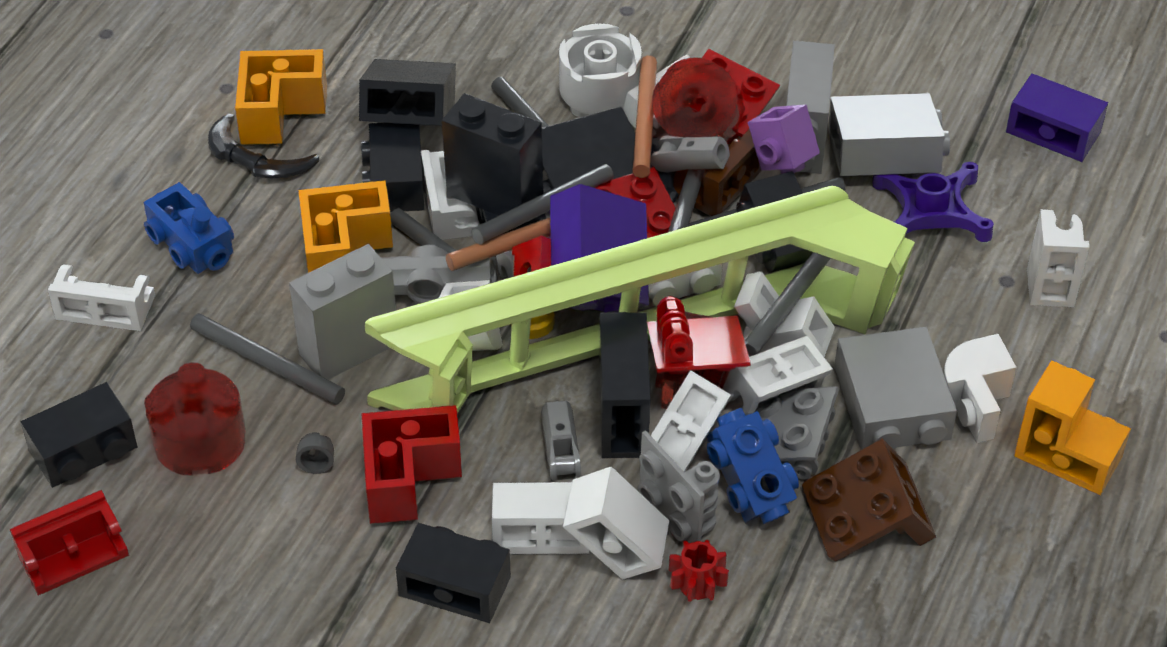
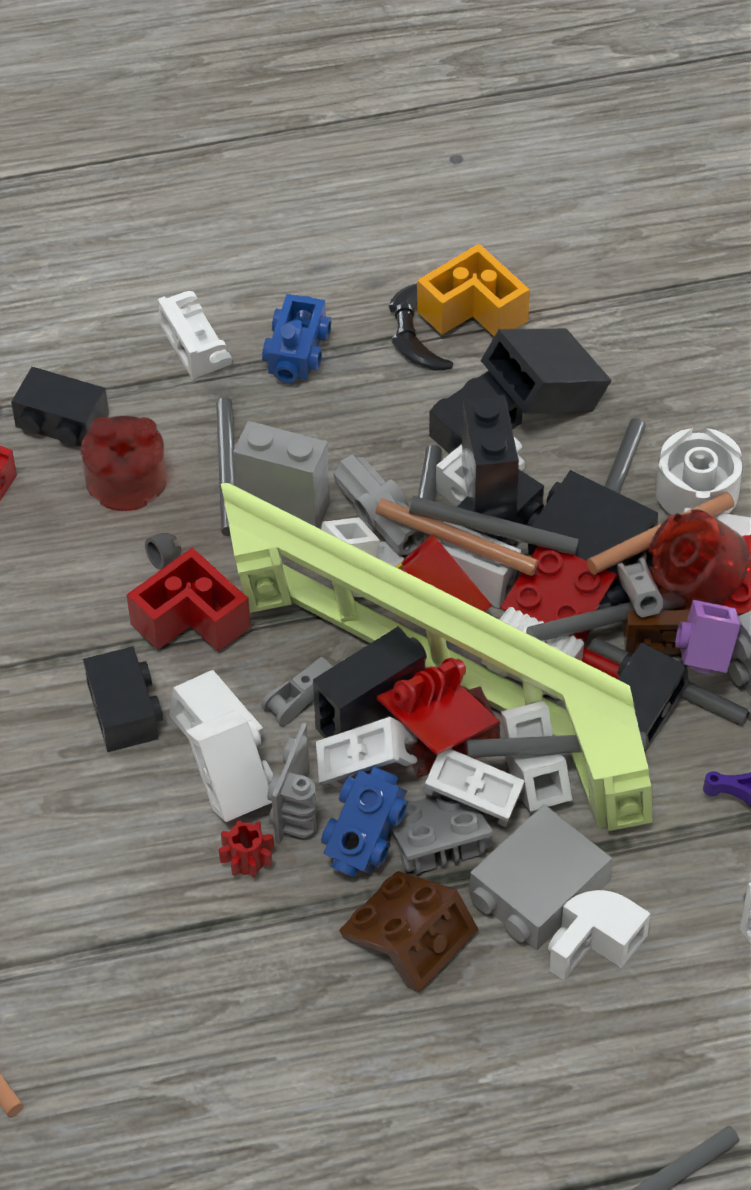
camera: 55 degrees right, 5 degrees up
(344, 220) = (373, 417): light orange brick -> none
(591, 222) = (482, 575): dark purple brick -> none
(1065, 435) = (592, 1019): light orange brick -> none

